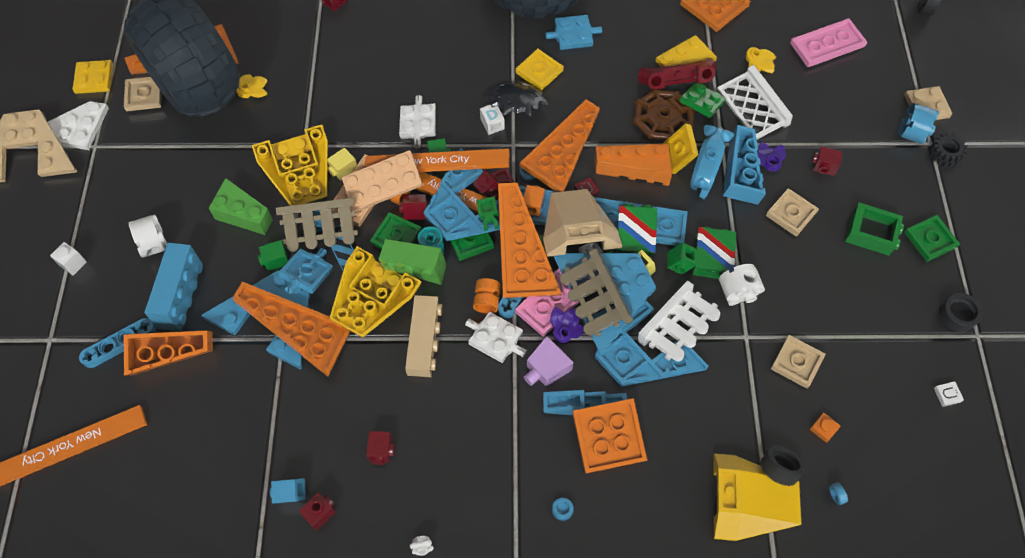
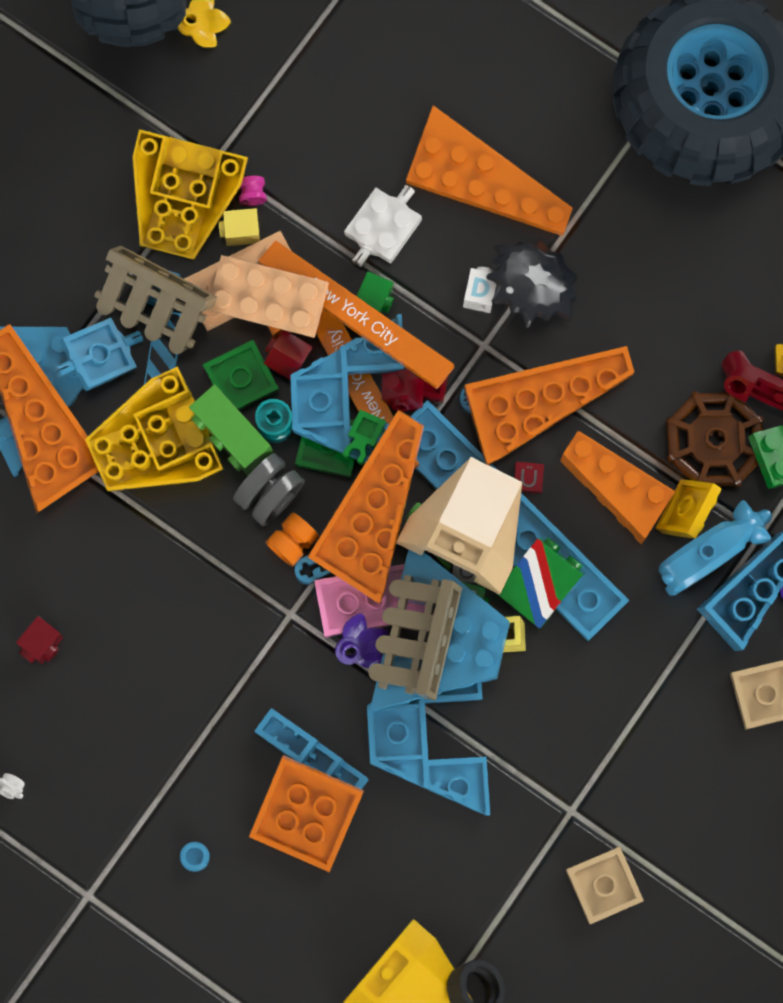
camera: 30 degrees right, 15 degrees up
(240, 209) = (72, 207): bright green wedge -> none
(273, 255) = (73, 303): green brick -> none
(335, 143) = (252, 191): none -> dark pink wheel
(423, 336) = (181, 537): tan brick -> none
(444, 73) = (469, 171): none -> orange wing
(455, 277) = (268, 489): none -> dark grey wheel
(495, 337) = (267, 598): white plate -> none
(534, 199) = (440, 451): orange brick -> none
(539, 69) = (601, 255): yellow plate -> none
(547, 364) = (301, 676): lavender torso -> none
(573, 32) = (694, 225): dark azure plate -> none
(675, 308) = (480, 720): white fence -> none
(682, 258) = (567, 660): green brick -> none
(714, 252) = (618, 678): panel -> none
(741, 284) = (625, 745): white brick -> none
(825, 427) = (570, 983): orange plate -> none

